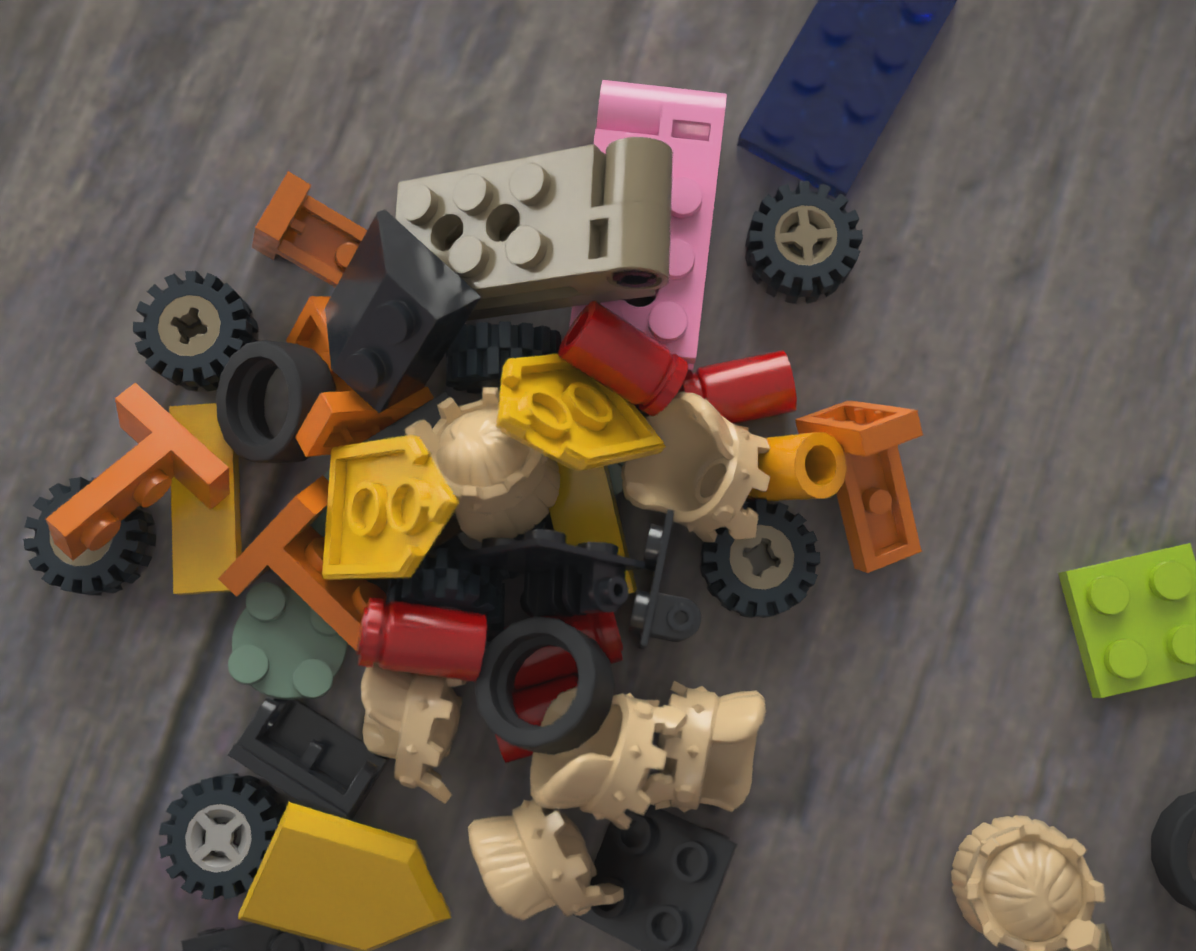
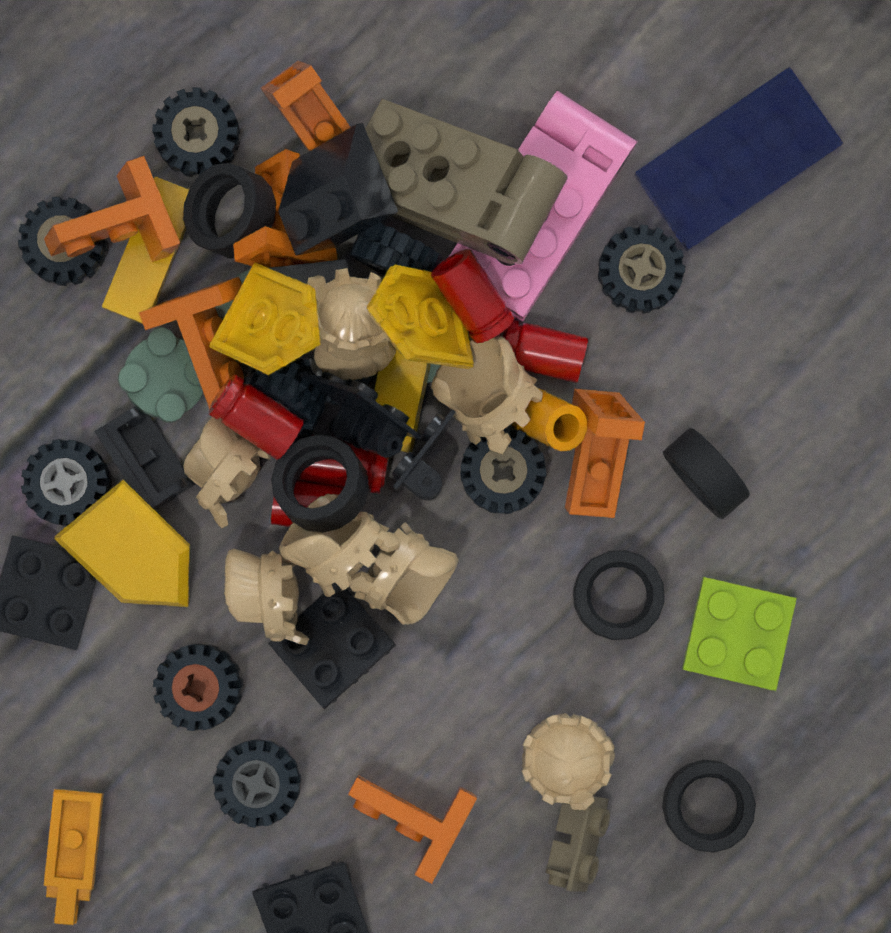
camera: 20 degrees right, 5 degrees up
(1011, 441) = (706, 473): none -> black tyre
(1026, 638) = (654, 594): none -> black tyre

